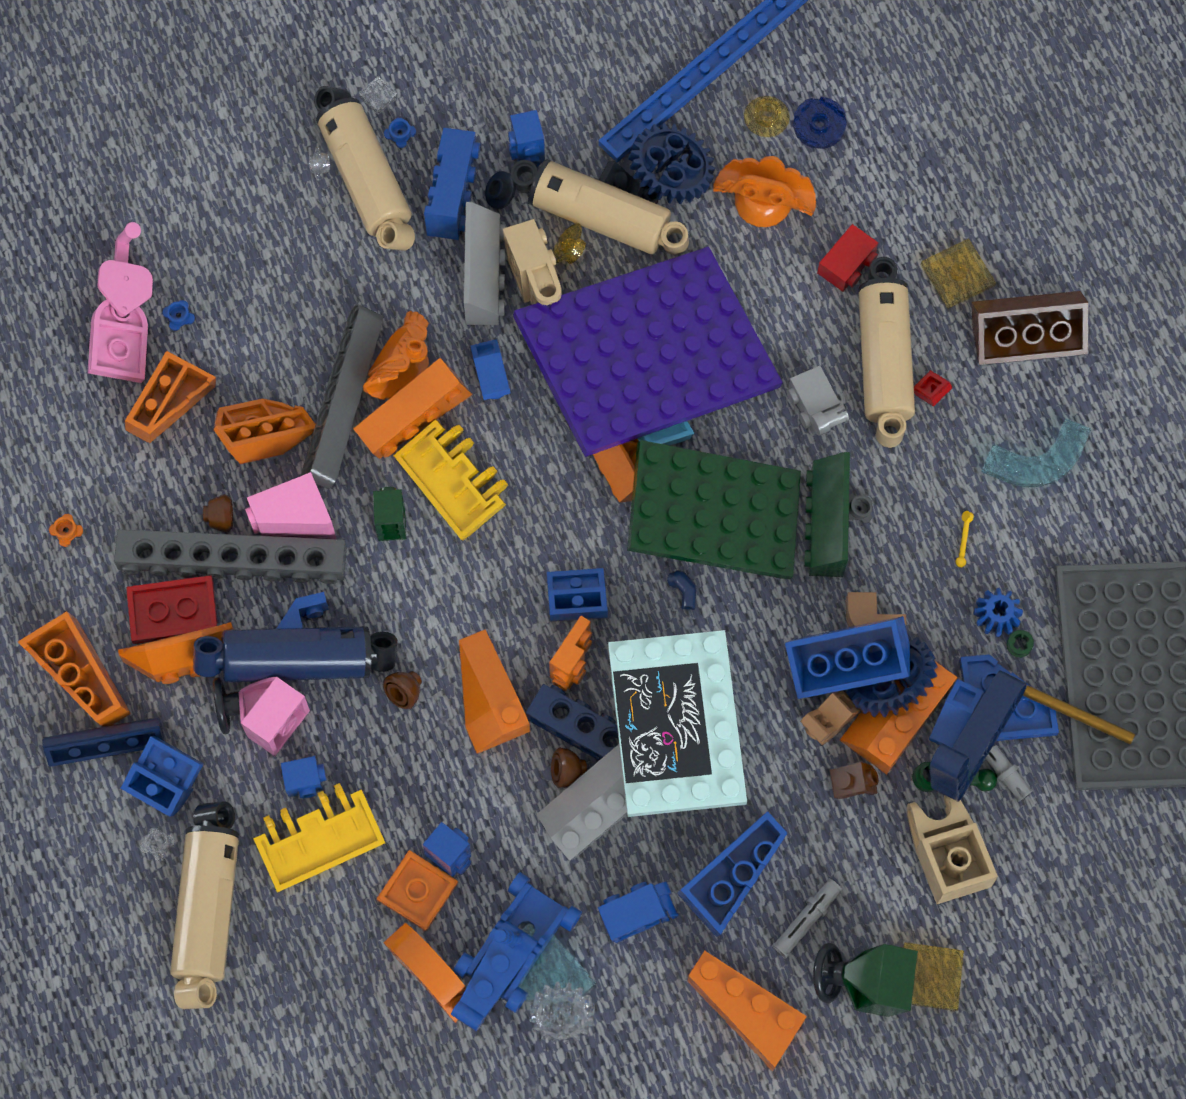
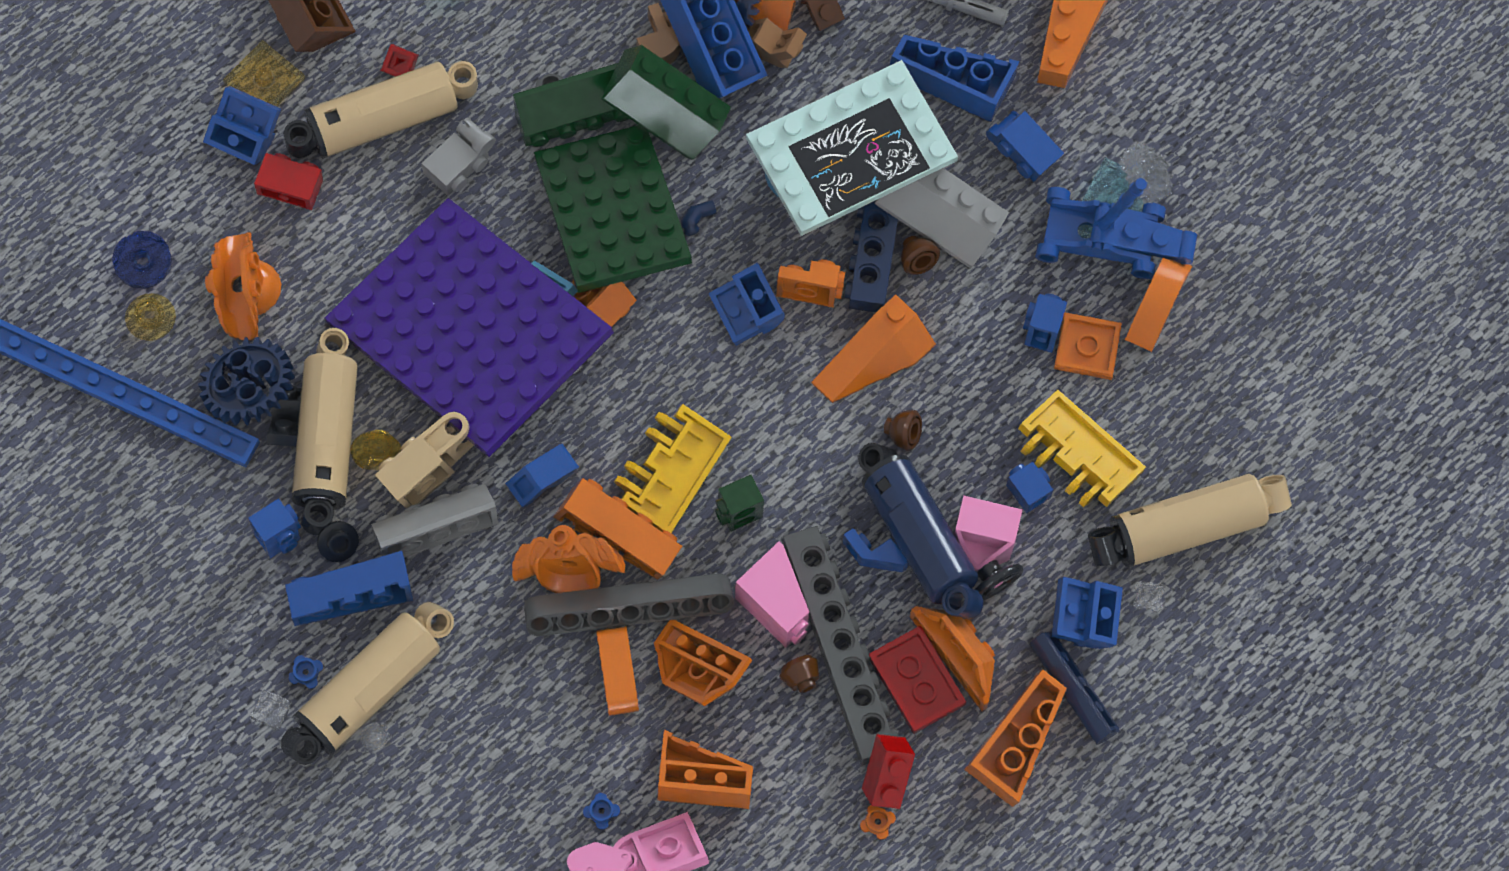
camera: 115 degrees left, 0 degrees up
(95, 543) = (888, 771): none -> red brick
(290, 366) = (617, 671): none -> orange beam
(797, 587) = (665, 101): none -> dark green slope
(913, 235) = (242, 126): none -> blue brick

